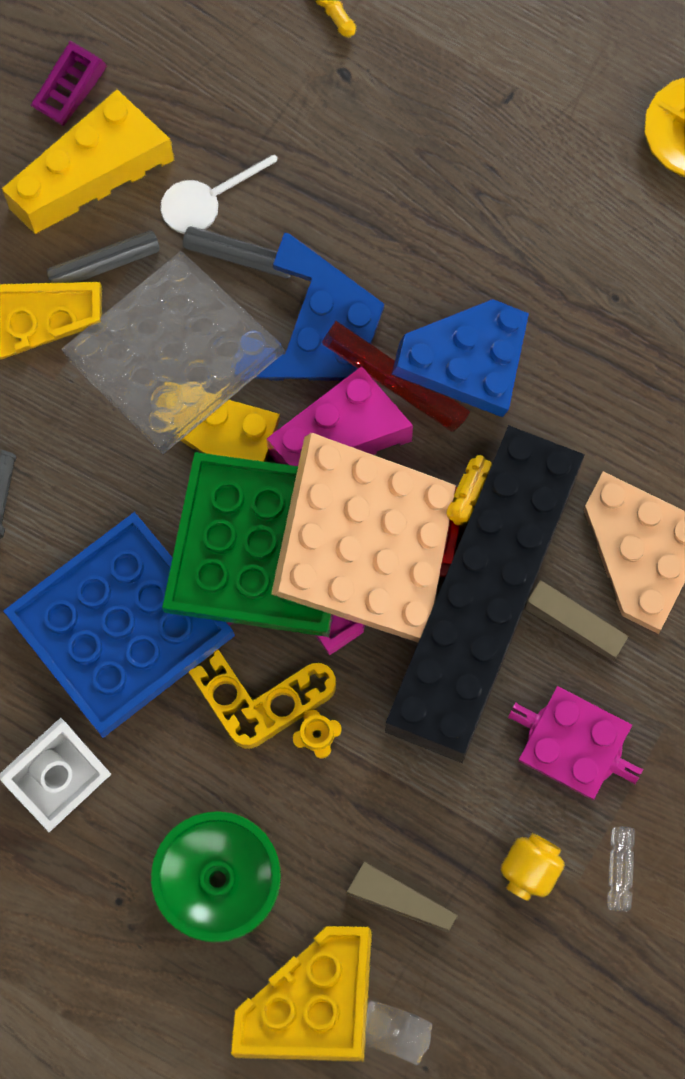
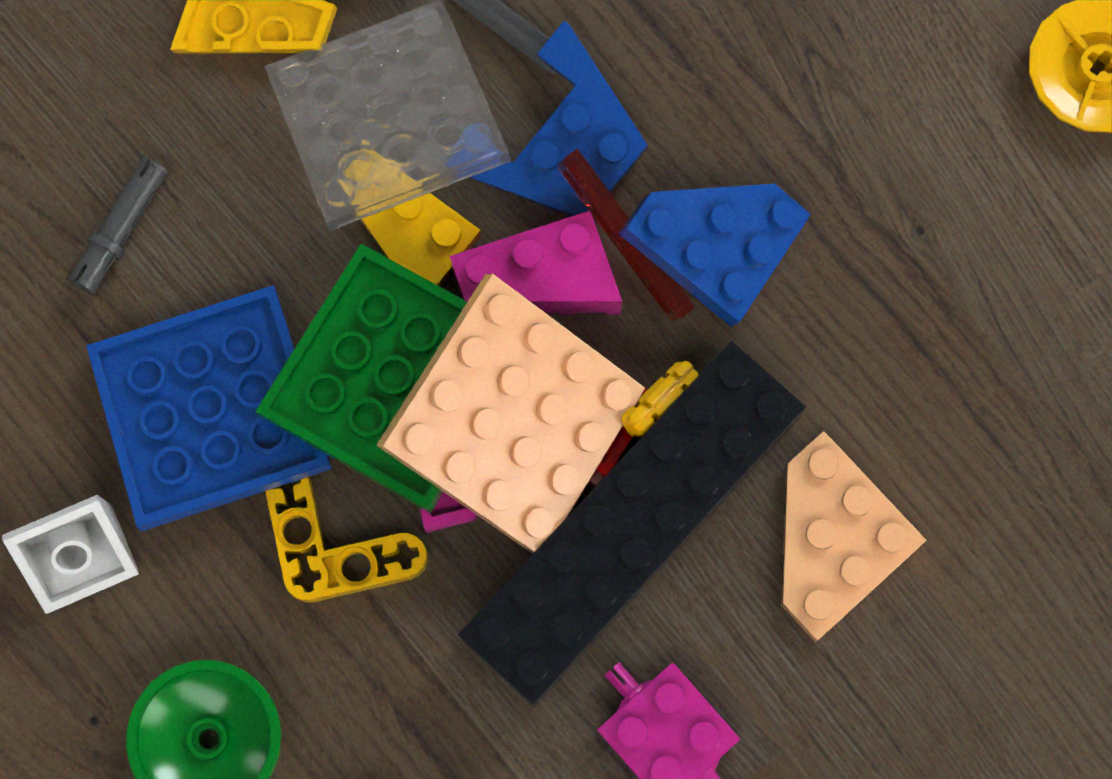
camera: 20 degrees right, 5 degrees up
(312, 722) = (397, 614): yellow plate -> none
(575, 620) = (724, 593): dark tan piece -> none

